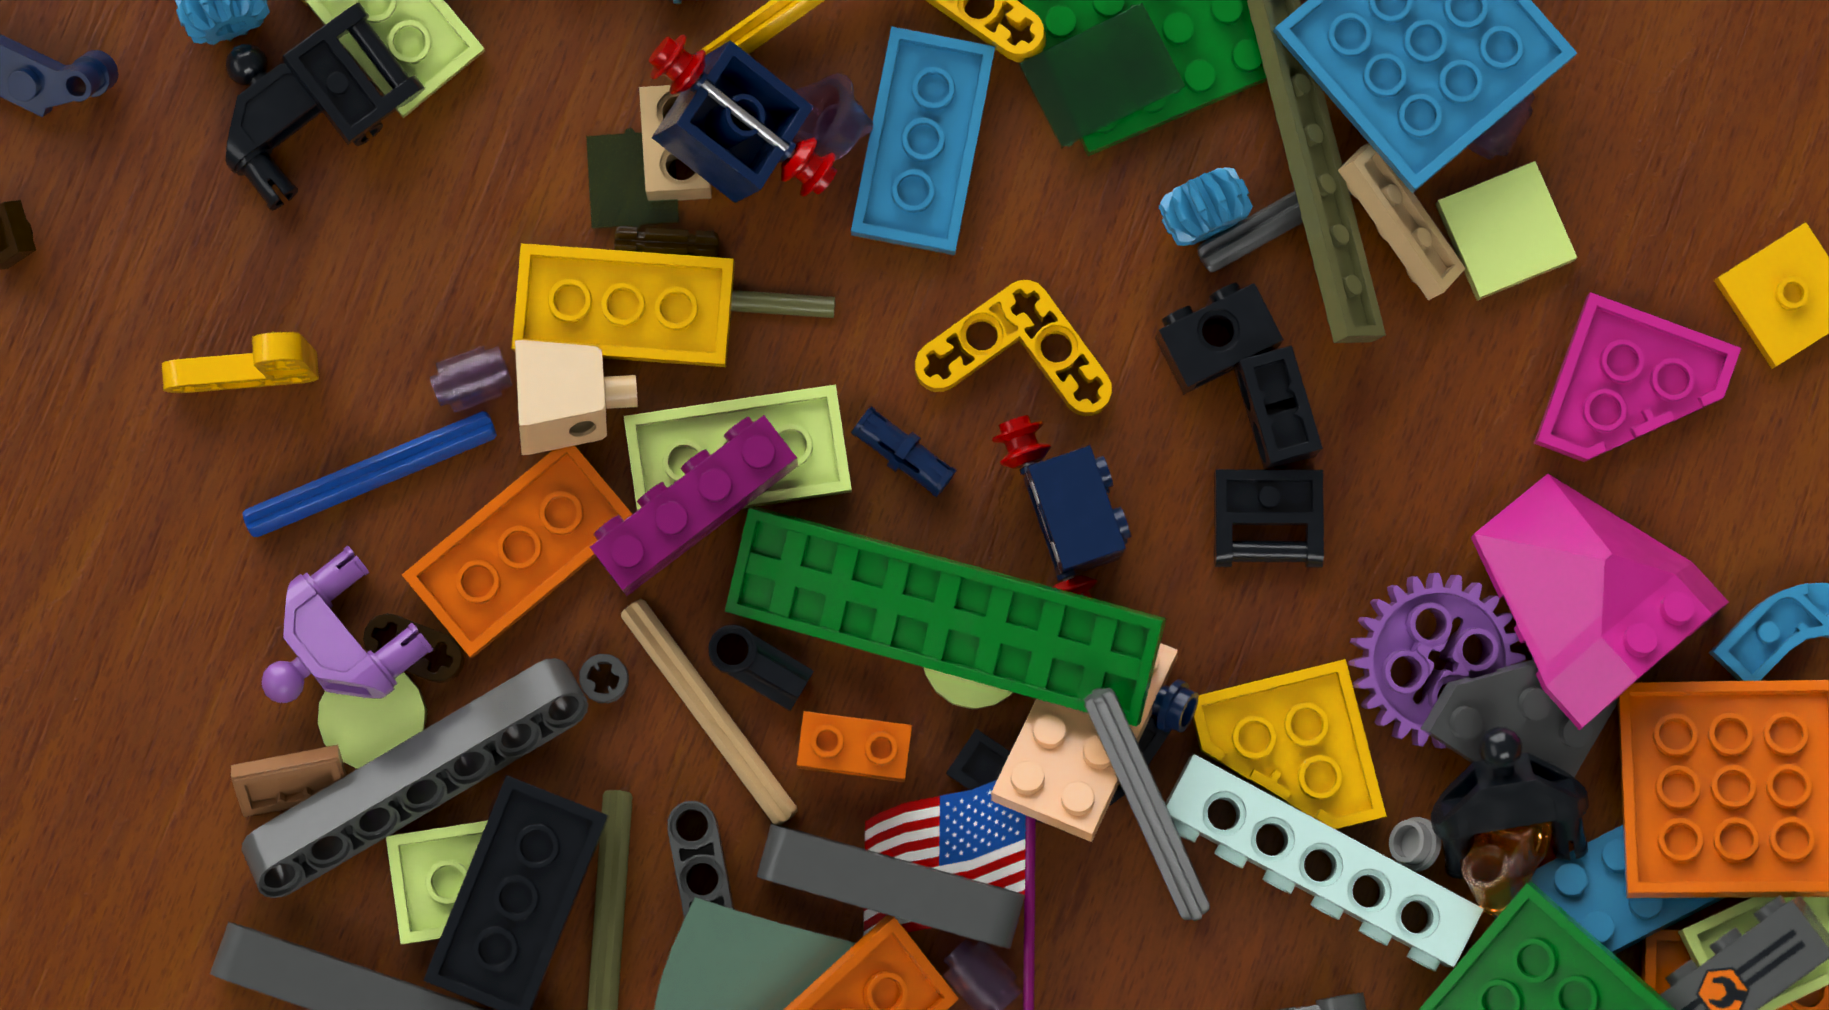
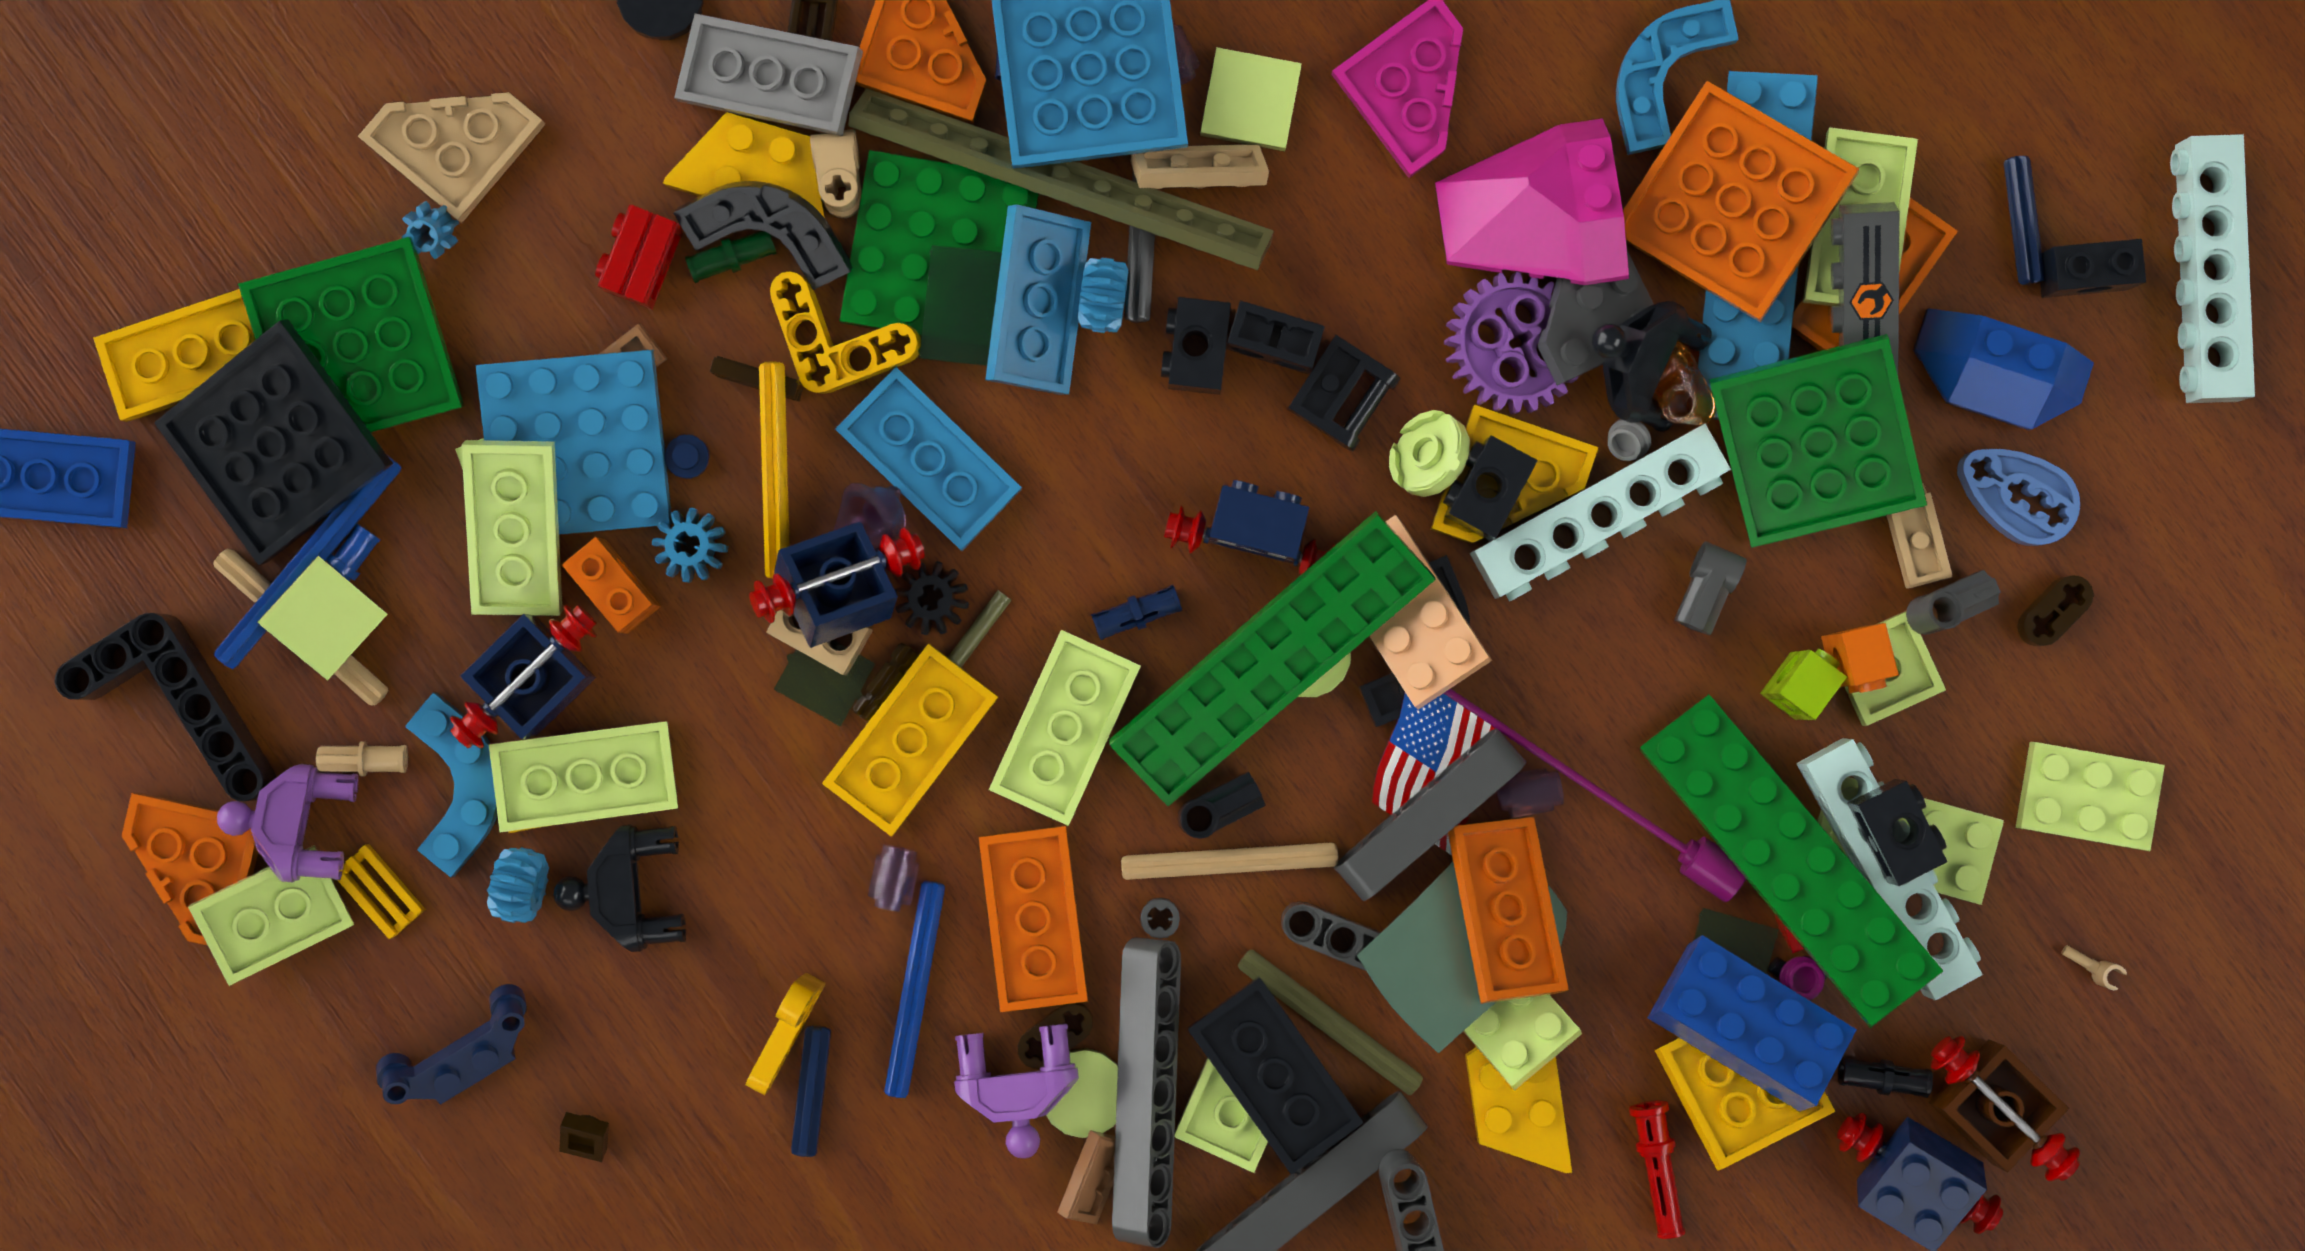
camera: 55 degrees left, 5 degrees up
(197, 435) = (811, 1091): none -> dark blue axle
(339, 83) = (630, 839): black plate -> none
(565, 395) = (948, 820): tan torso -> none
(694, 505) = (1085, 783): magenta brick -> none
(784, 251) = (945, 604): none -> black gear
(854, 746) = (1319, 777): orange brick -> none
(1010, 330) = (1099, 485): yellow beam -> none
(1147, 803) = (1489, 605): axle -> none
(1156, 143) = (1038, 300): none -> dark azure plate
(1175, 706) = (1433, 542): dark blue plate -> none
(1263, 643) = (1429, 453): none -> yellowish green tile
(1302, 731) = (1508, 468): none -> black brick

